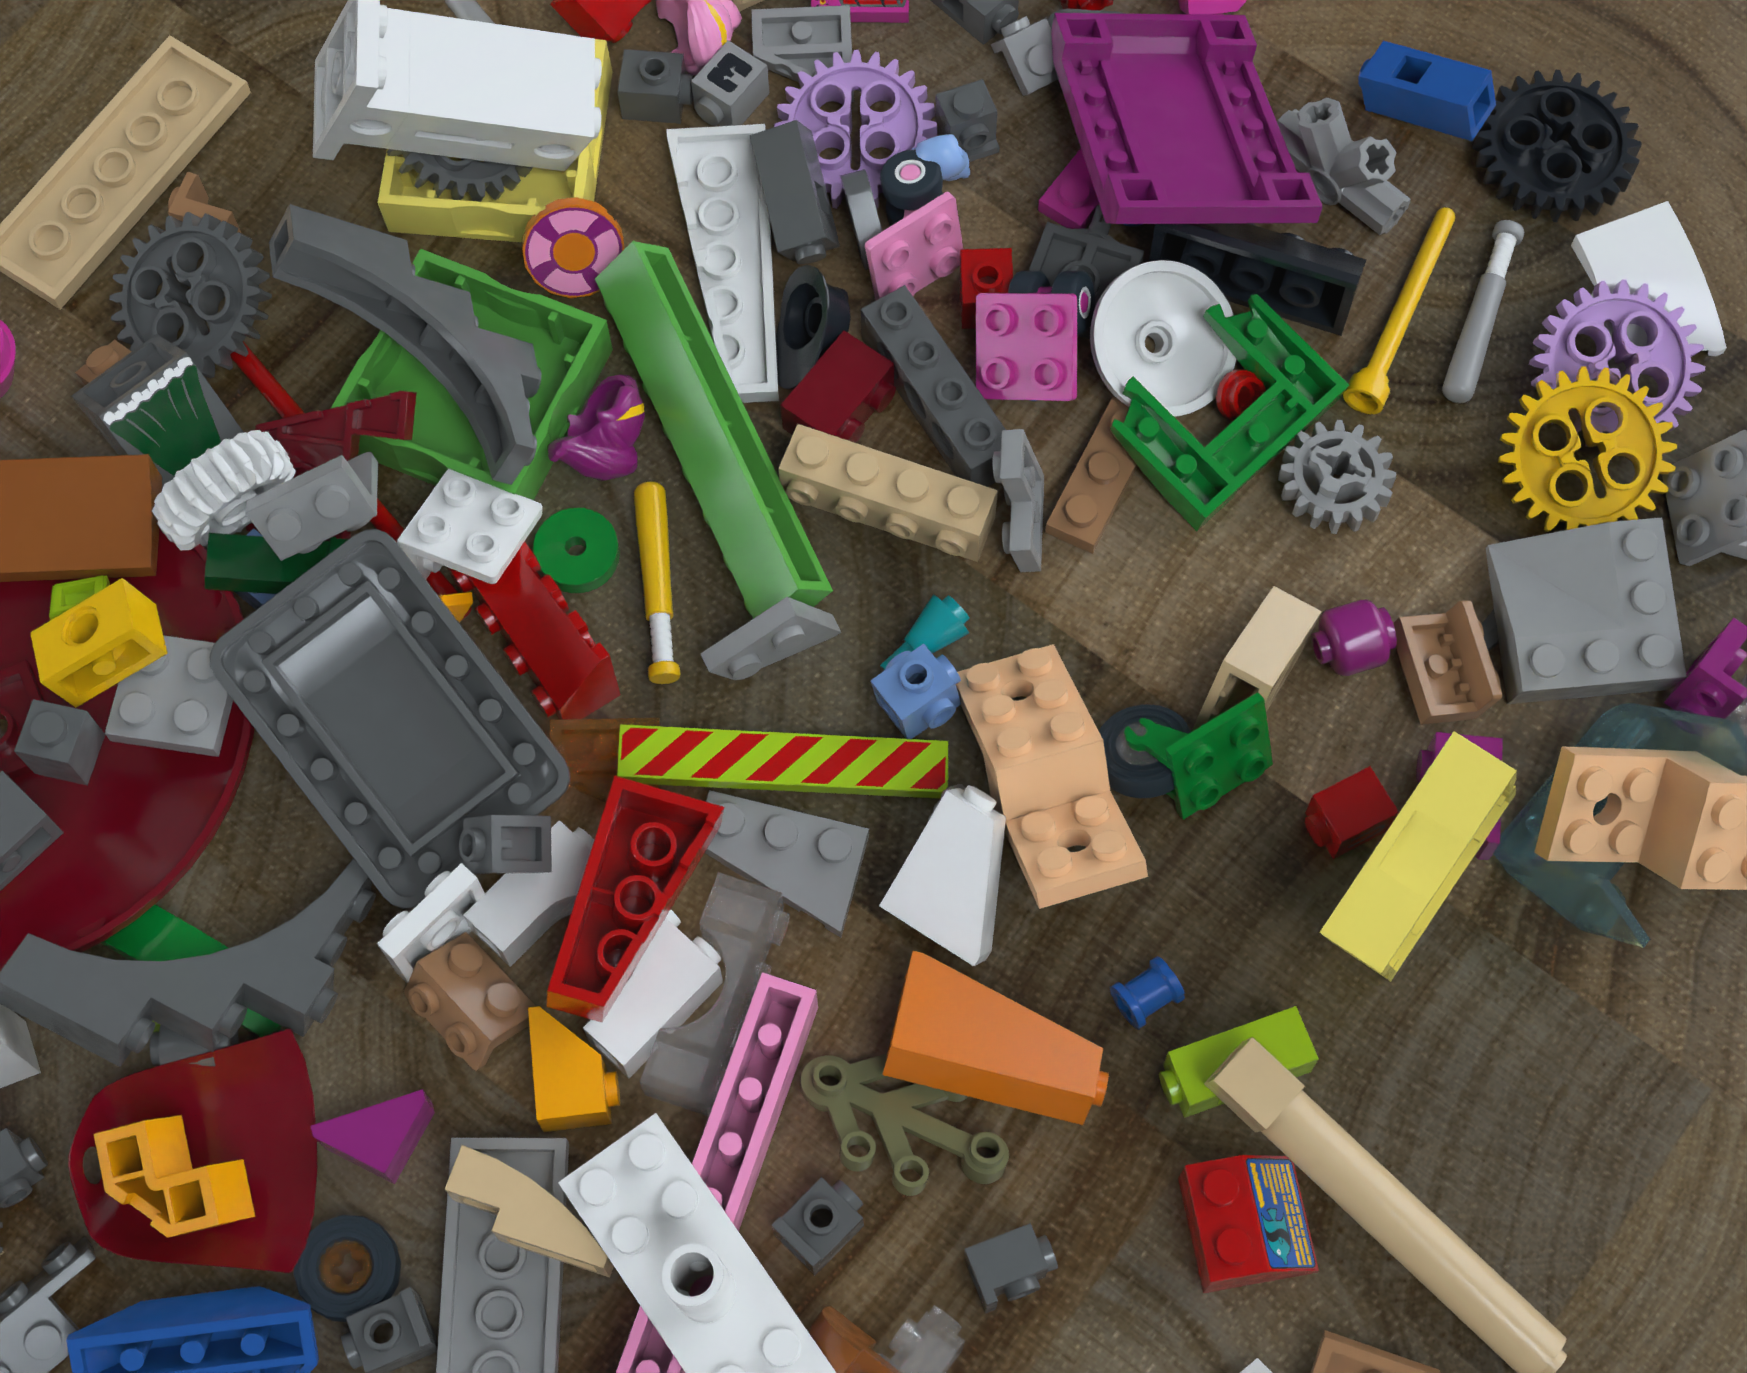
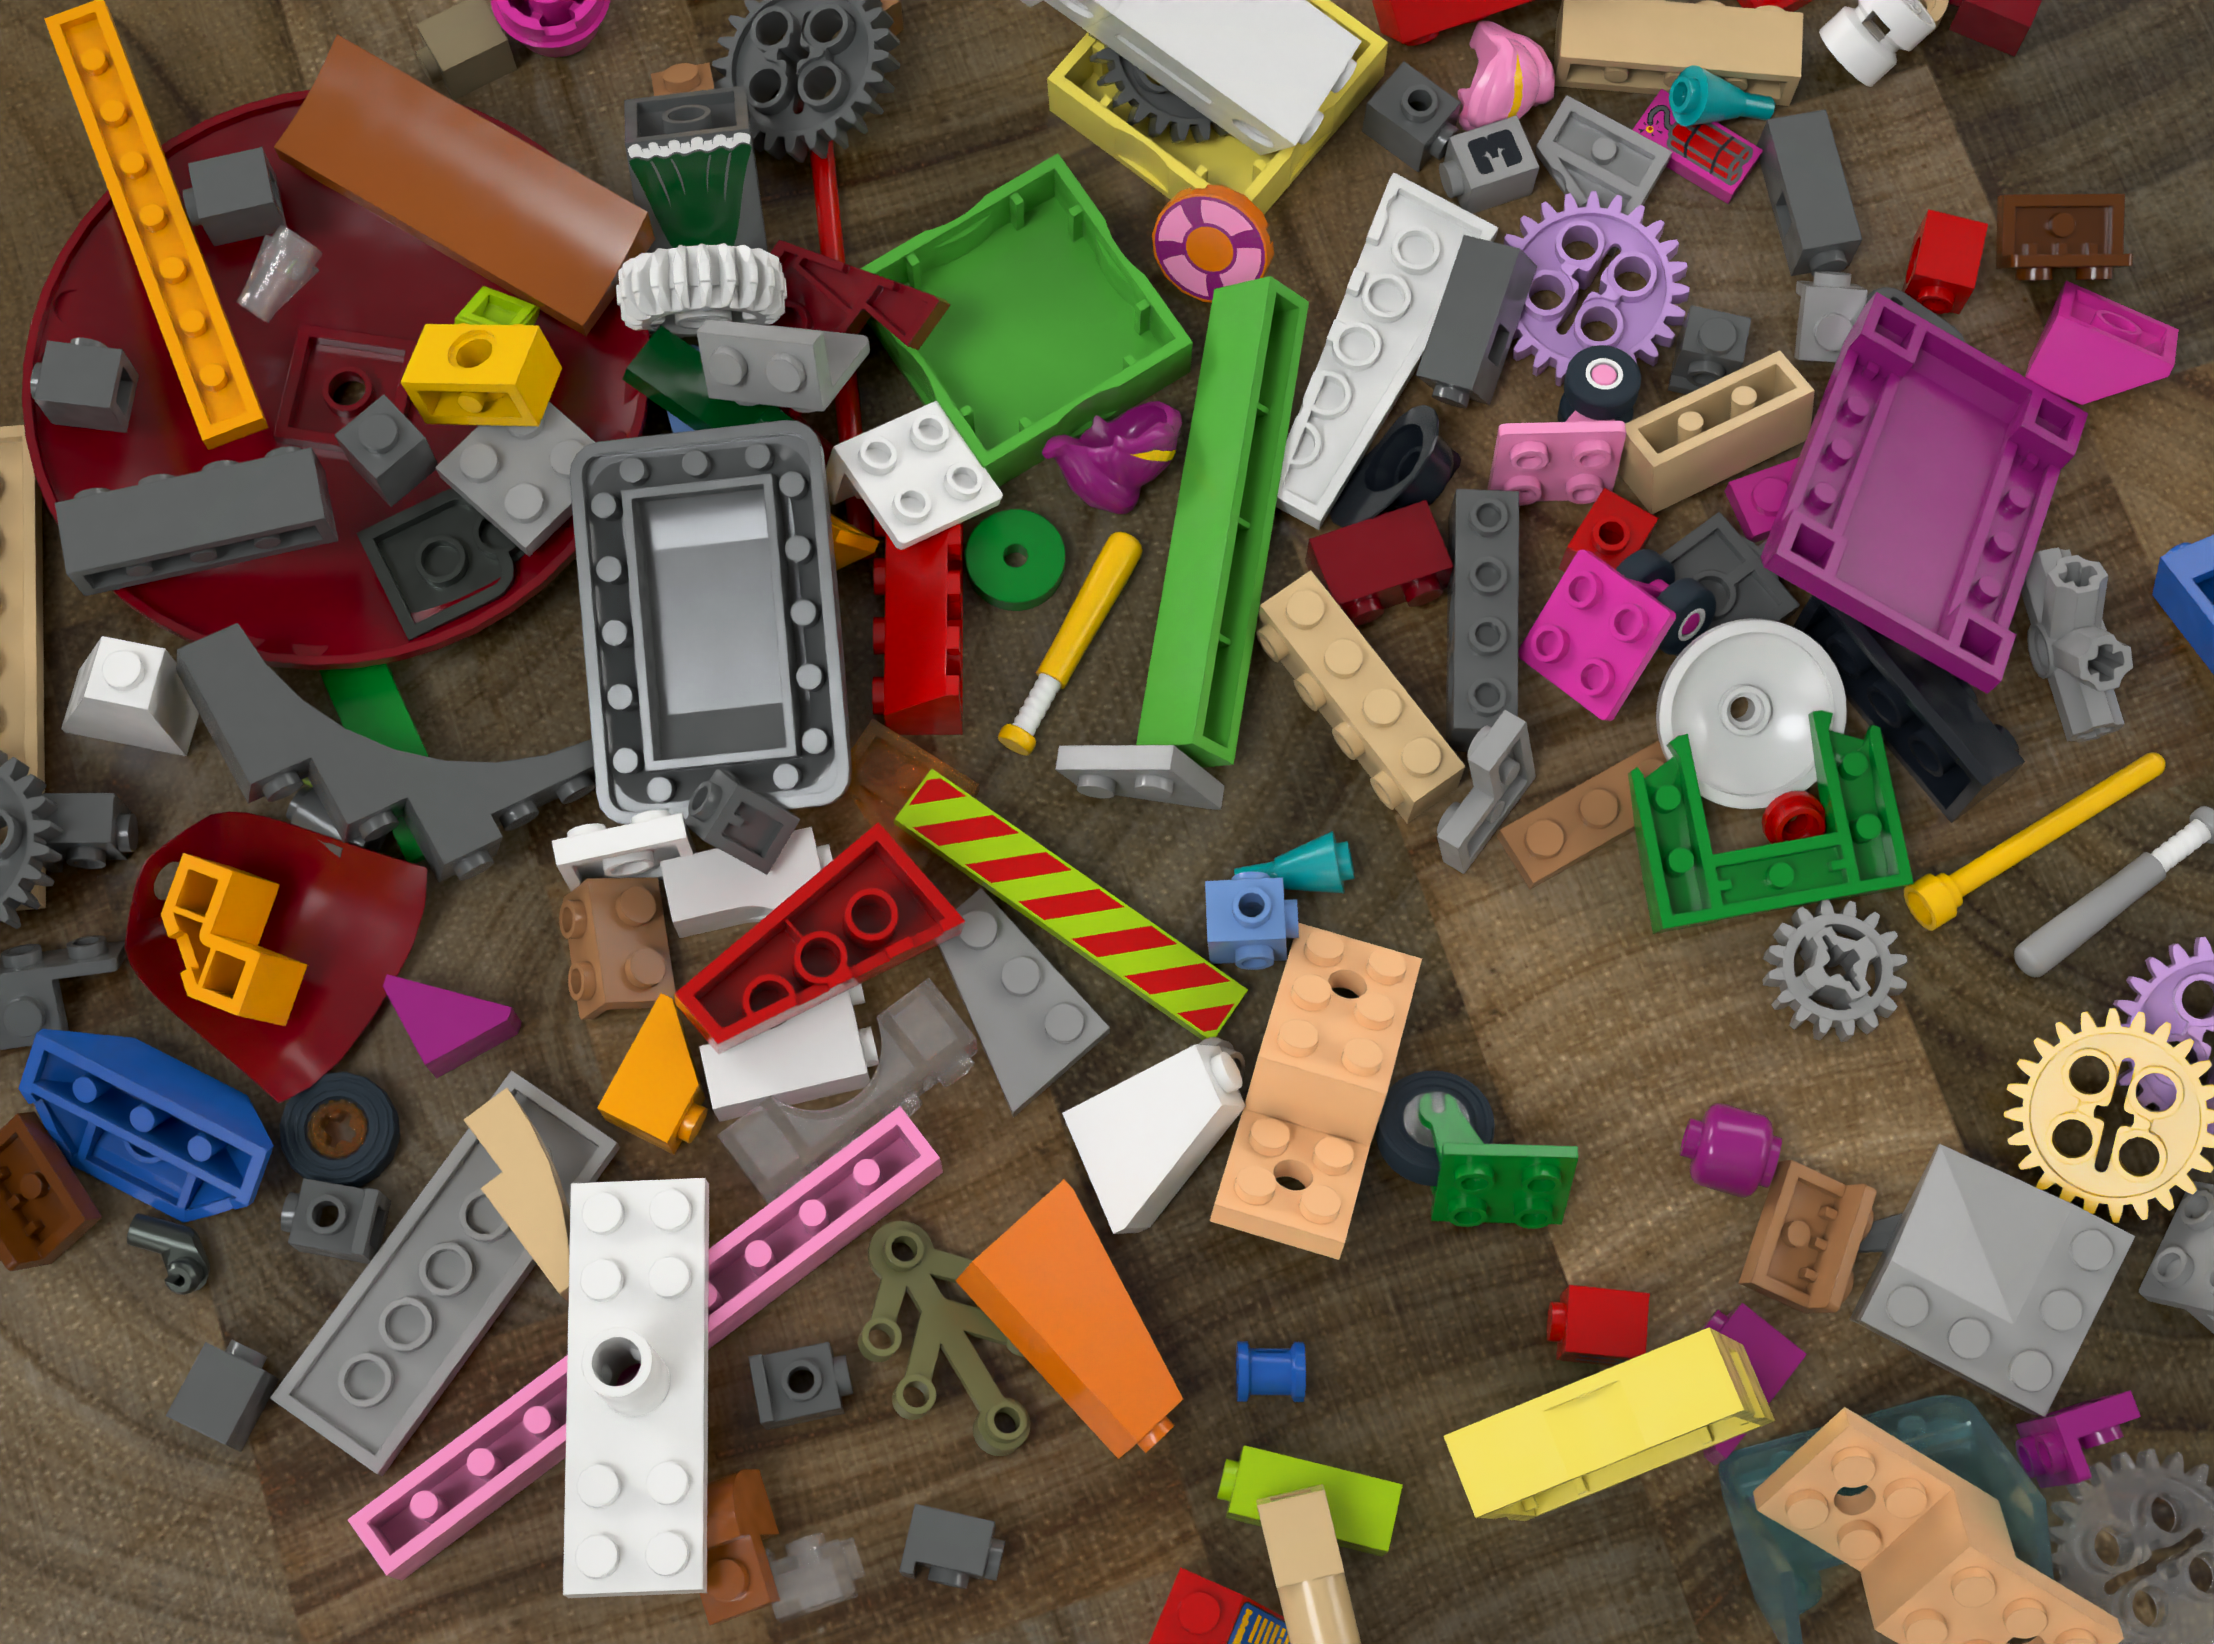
camera: 30 degrees right, 5 degrees up
(146, 800) = (438, 556): none -> pearl dark grey plate
(433, 321) = (1017, 239): dark grey arch -> none
(861, 209) = (1533, 380): beam -> none
(947, 153) = (1655, 376): light blue piece -> none
(1010, 168) = (1716, 432): none -> tan brick
(1261, 654) = (1618, 1109): tan slope -> none

